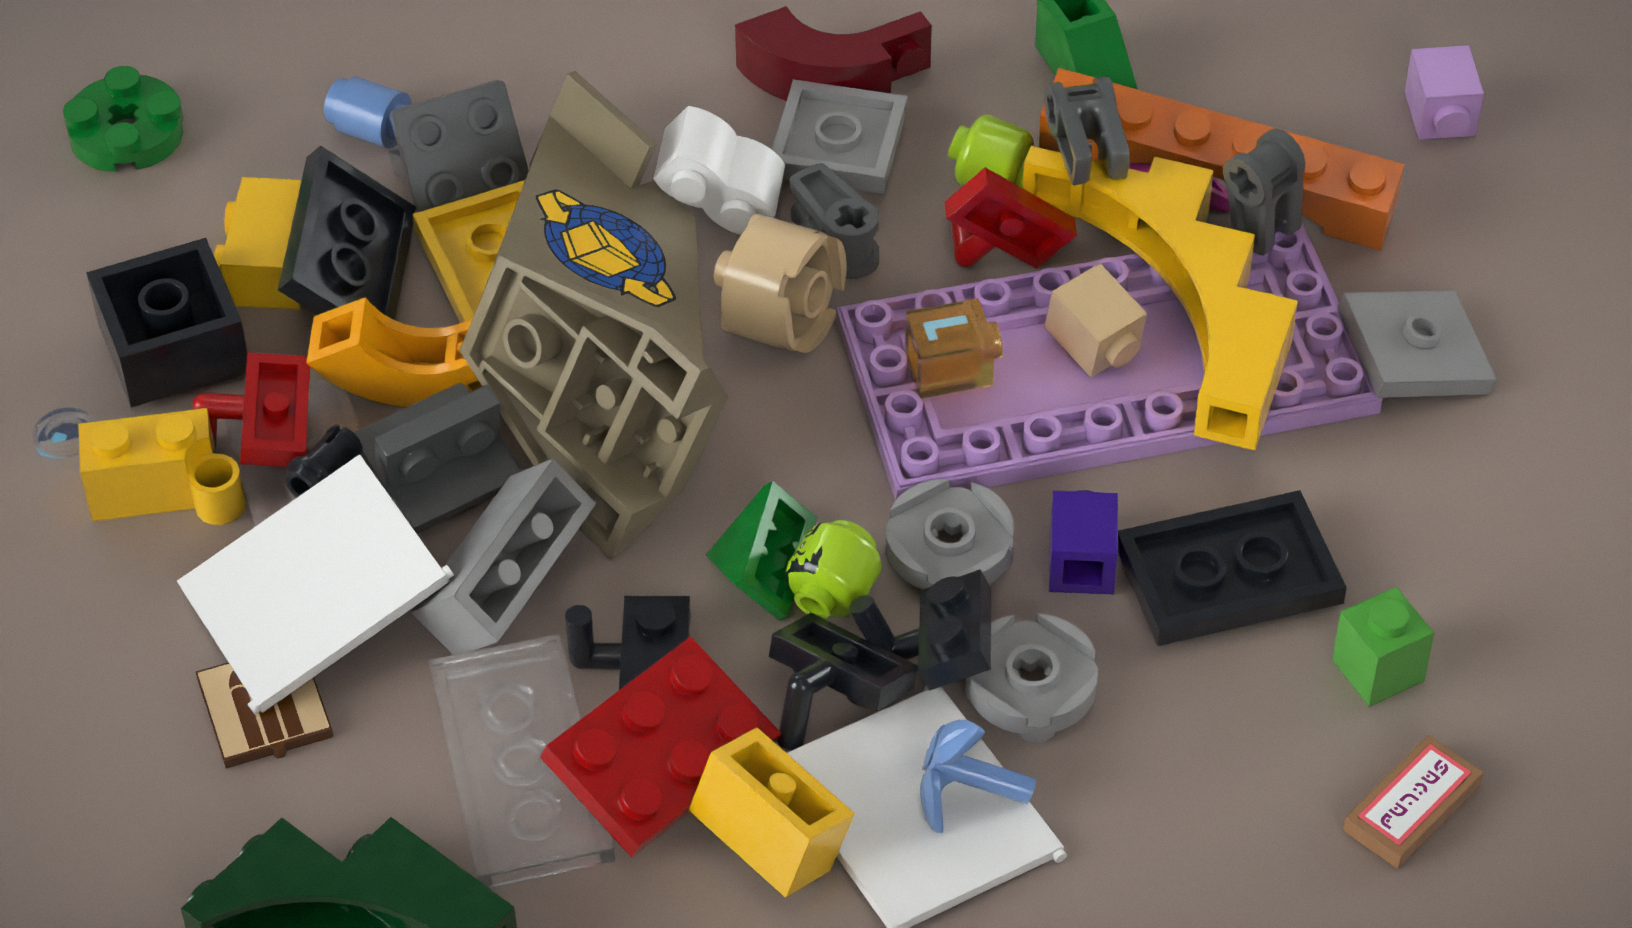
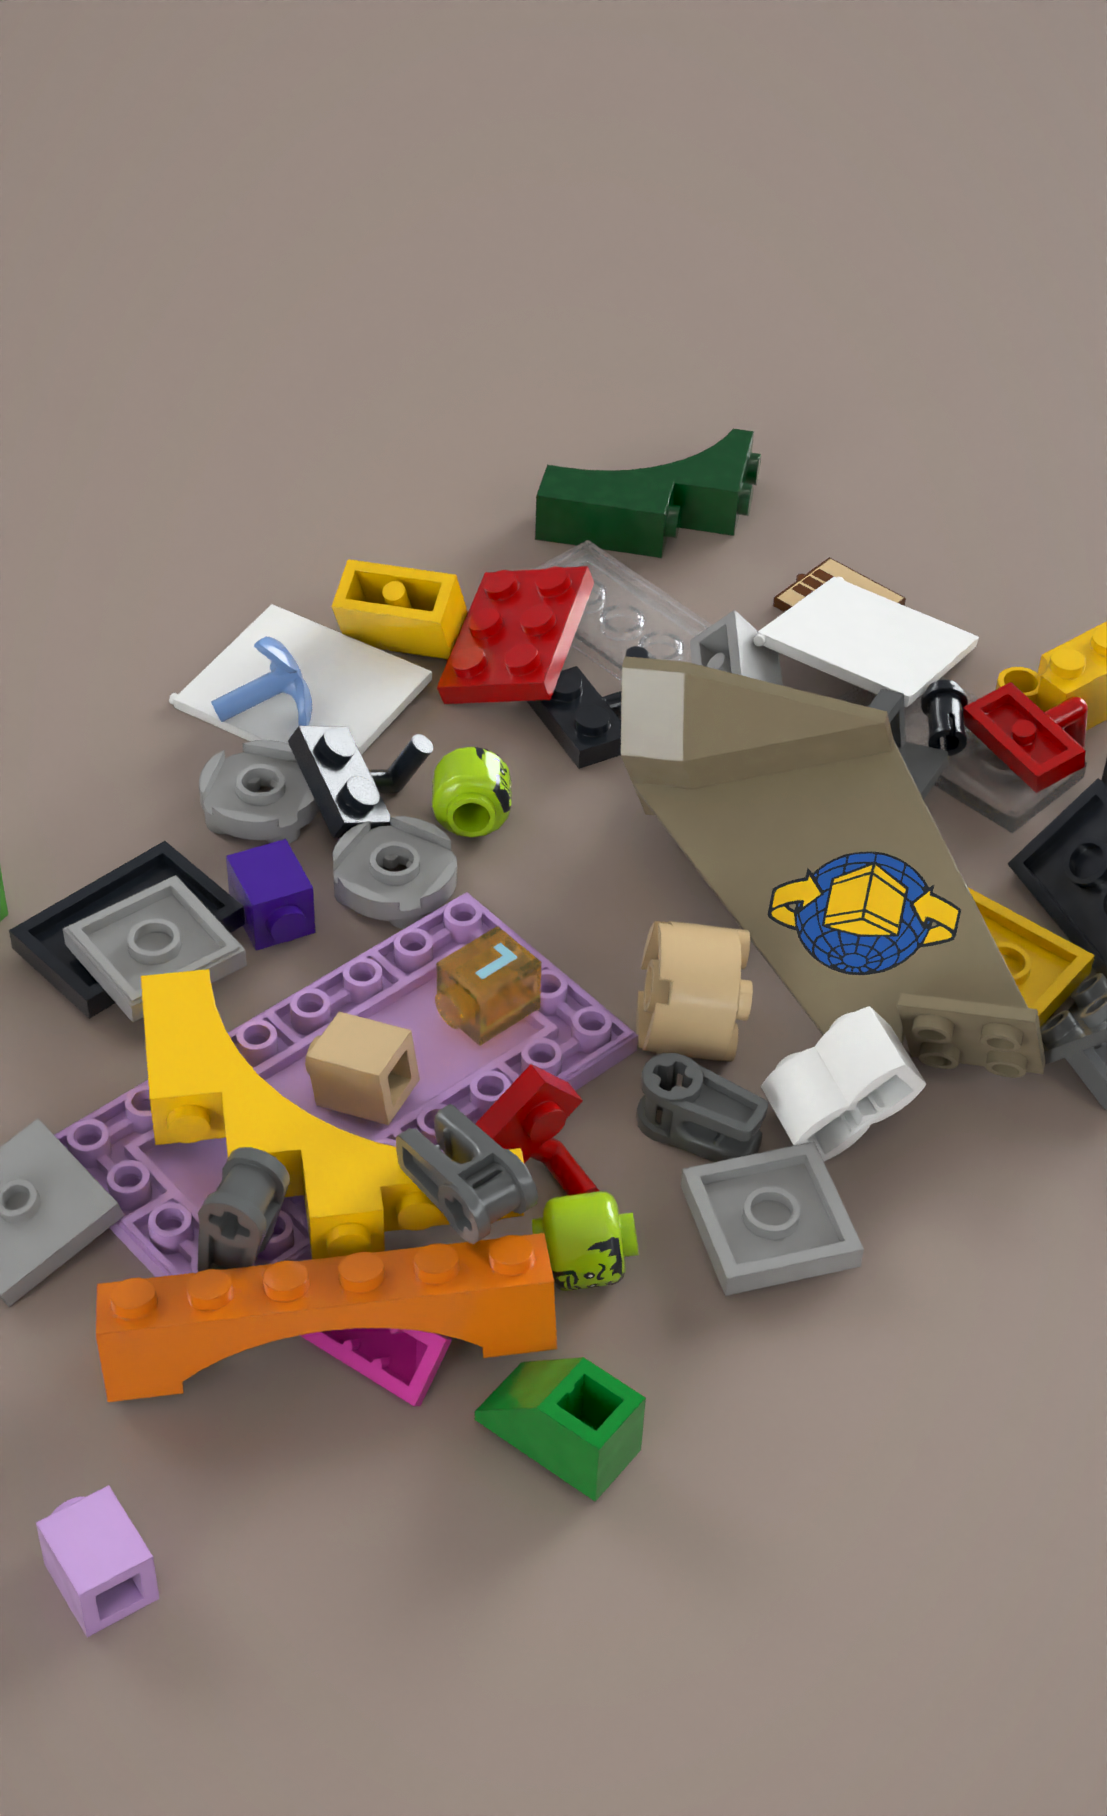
camera: 150 degrees right, 5 degrees down
(385, 358) = (996, 815): light orange arch -> none
(760, 545) = (545, 805): green slope -> none
(781, 48) = (848, 1285): dark red arch -> none
(837, 659) = (391, 724): black plate -> none
(1221, 504) = (150, 935): none -> light grey tile

